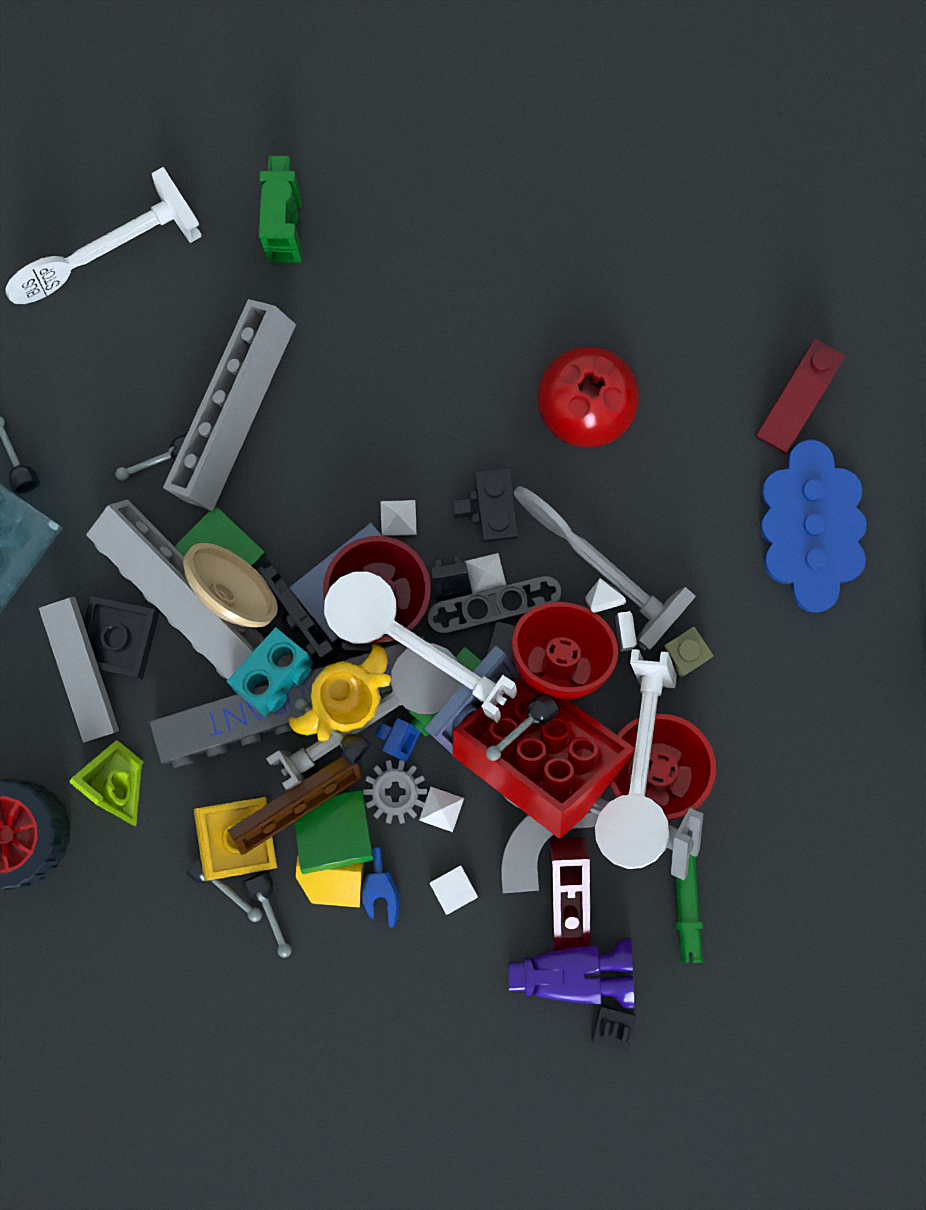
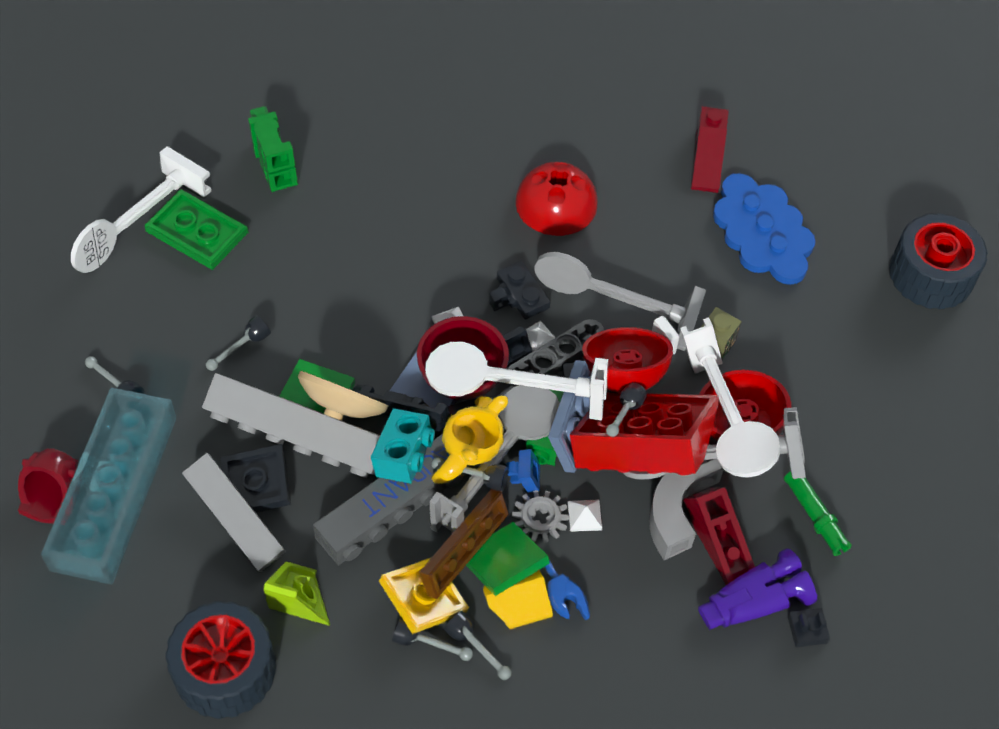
camera: 30 degrees left, 25 degrees down
(165, 286) = (196, 229): none -> green tile
(230, 405) = (284, 284): light grey brick -> none
(453, 889) = (624, 570): white tile -> none
(604, 596) = (637, 315): white slope -> none

